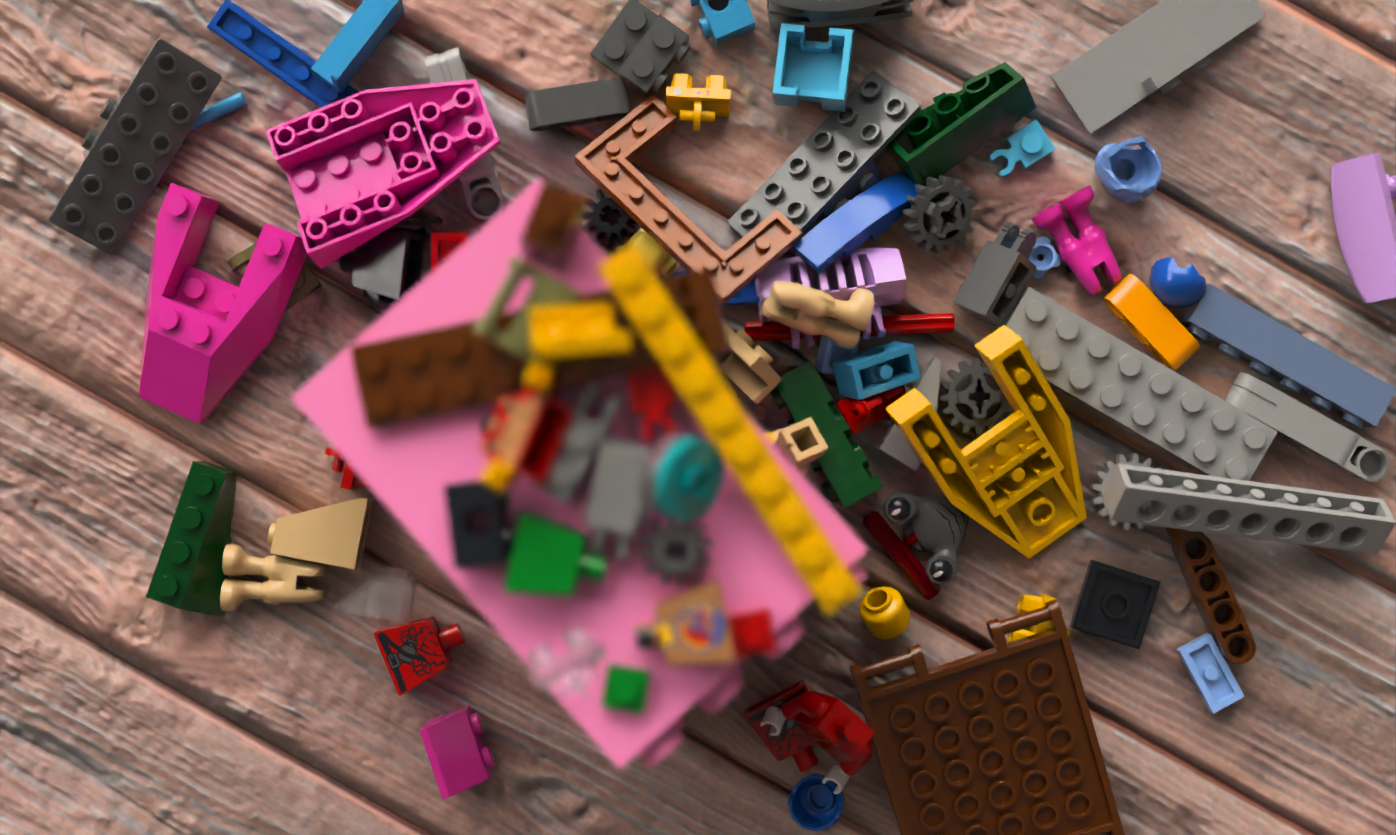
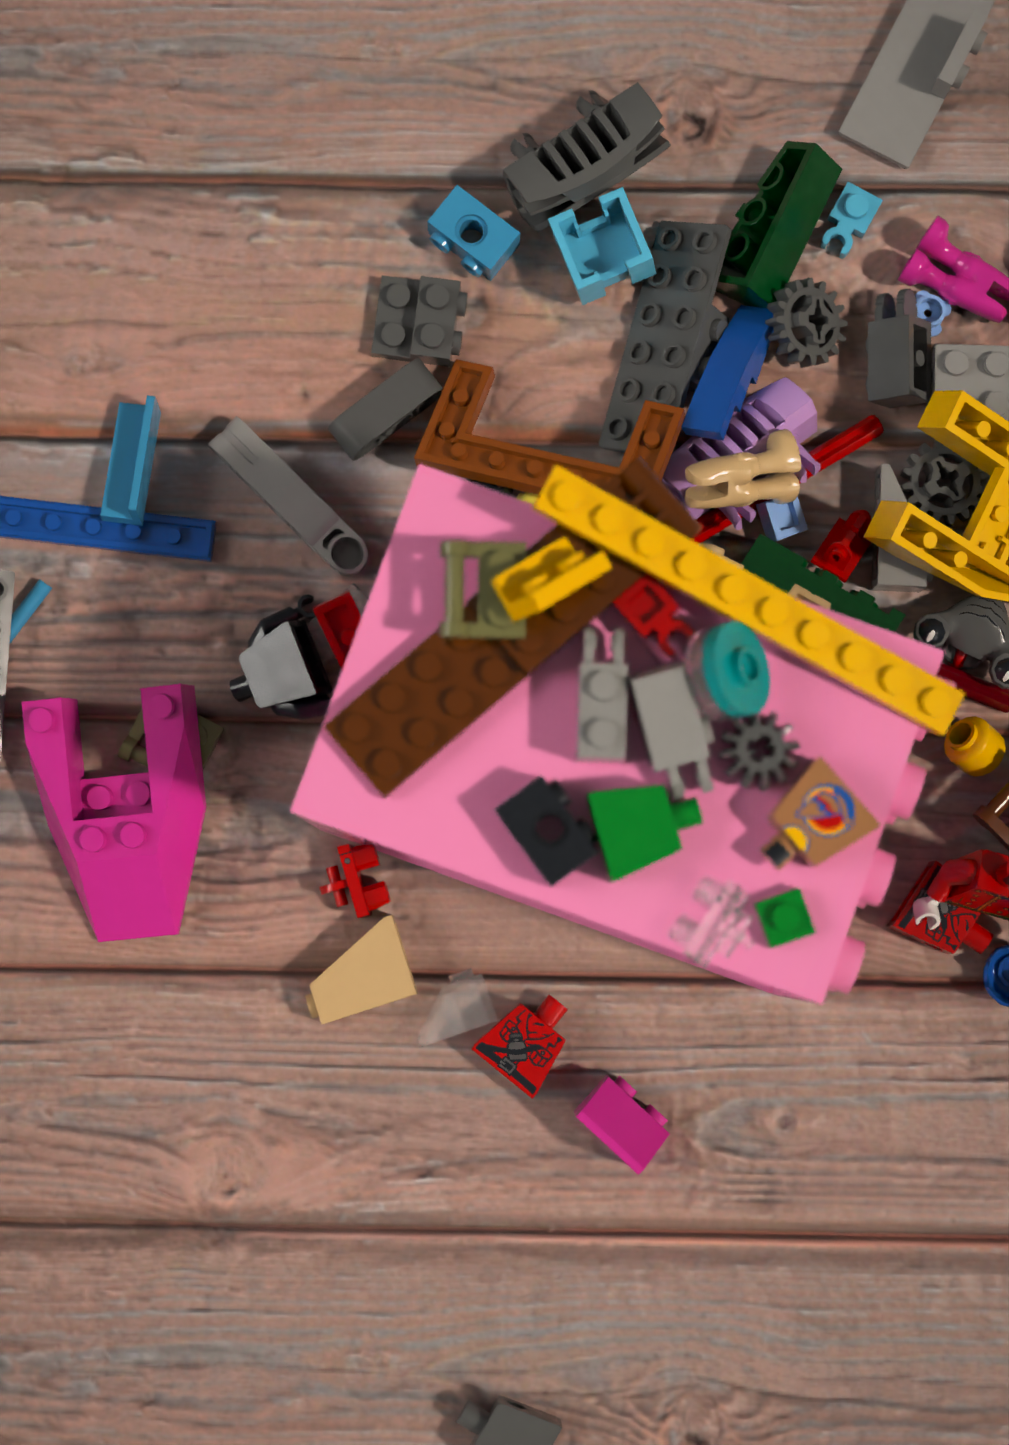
camera: 25 degrees left, 5 degrees down
(191, 560) = (242, 1062): dark green wedge -> none
(281, 583) = (347, 1050): tan piece -> none
(378, 159) = (219, 565): dark pink wedge -> none
(525, 432) = (548, 707): torso -> none
(552, 225) = (462, 497): reddish brown torso -> none
(698, 103) = (506, 343): yellow hips -> none
(752, 633) = (881, 792): red plate -> none
(876, 370) = (830, 507): dark azure brick -> none
(1128, 172) = (968, 183): medium blue hair -> none

